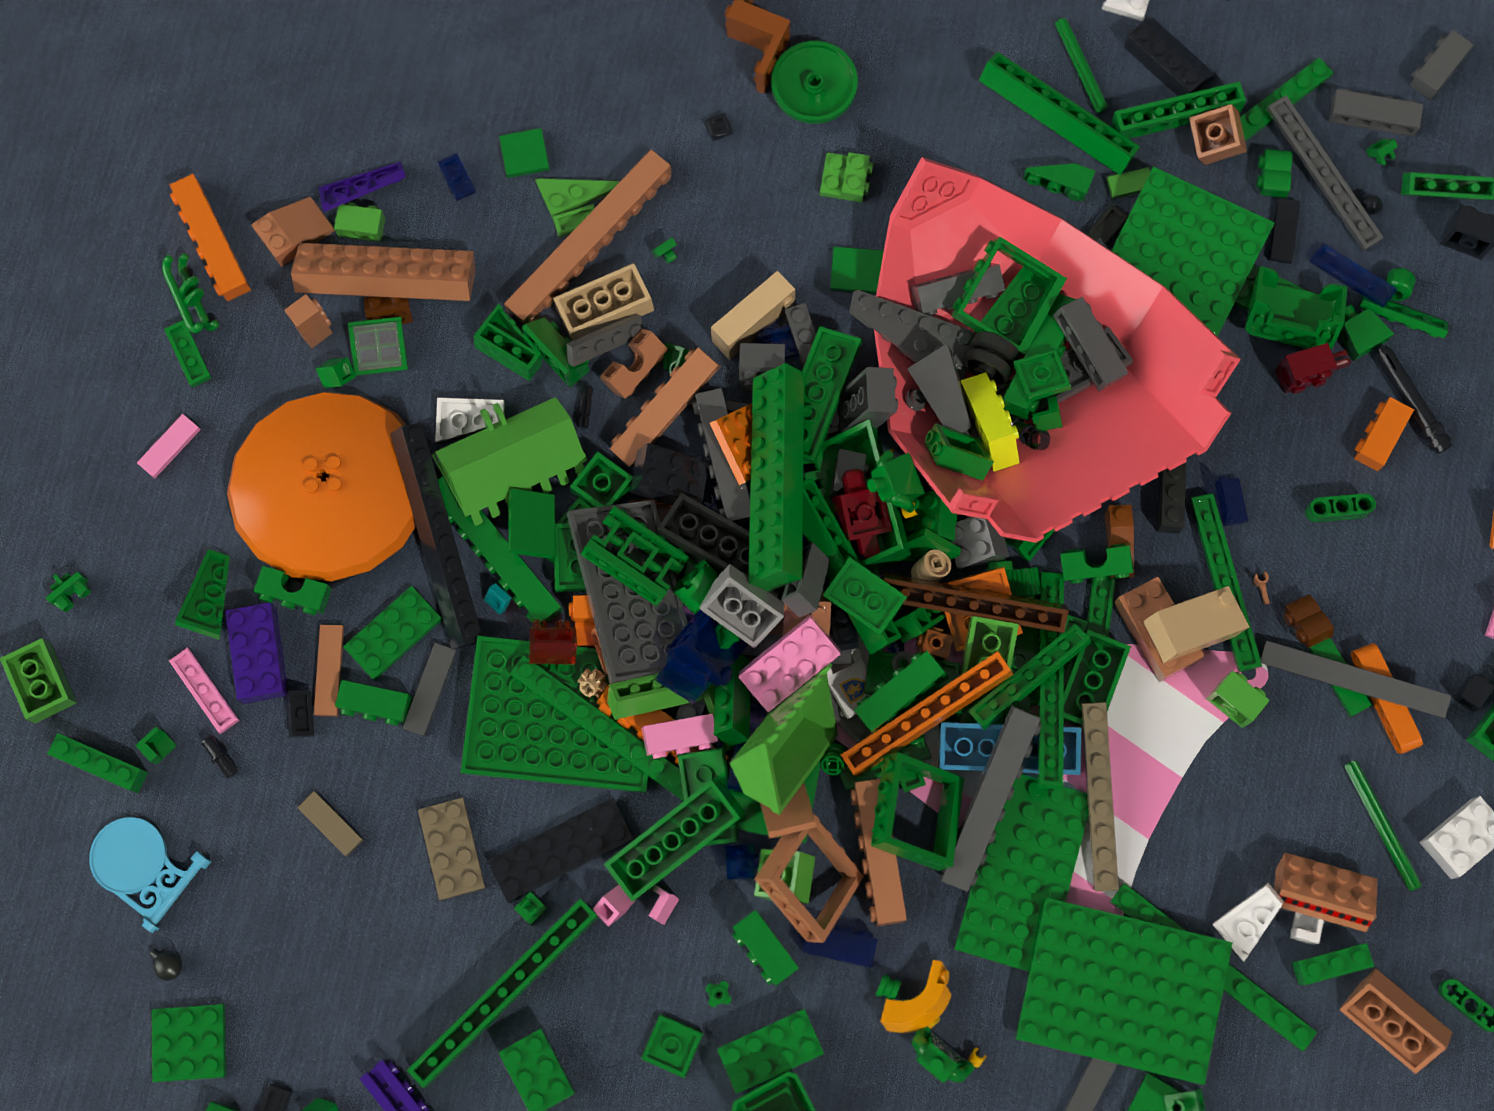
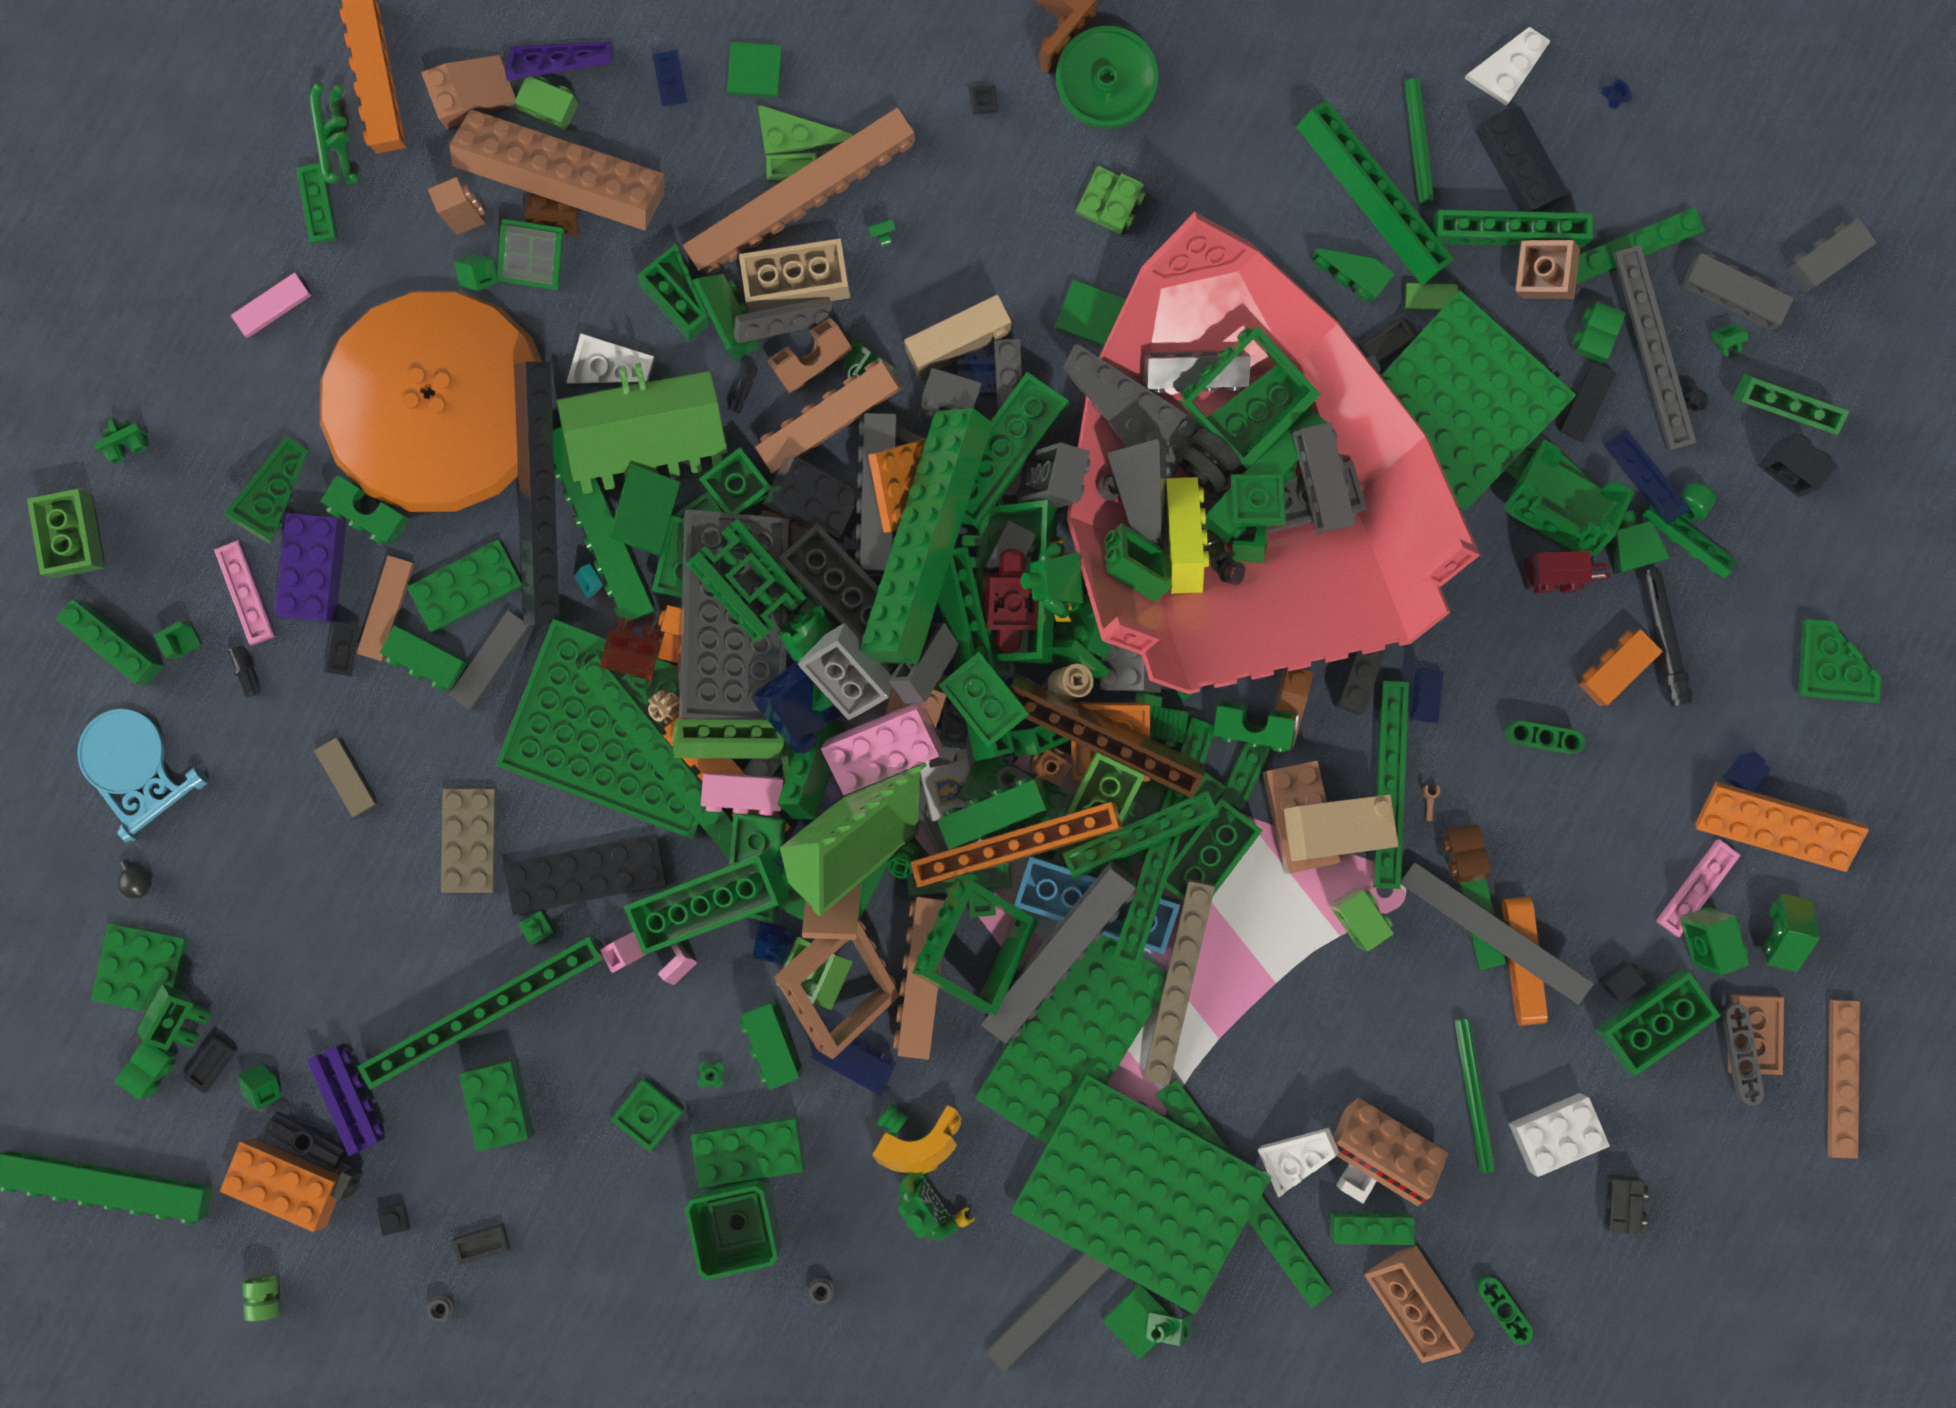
camera: 10 degrees right, 10 degrees up
(225, 1076) = (165, 1017): none -> green brick
(684, 676) = (761, 733): clear blue panel -> none

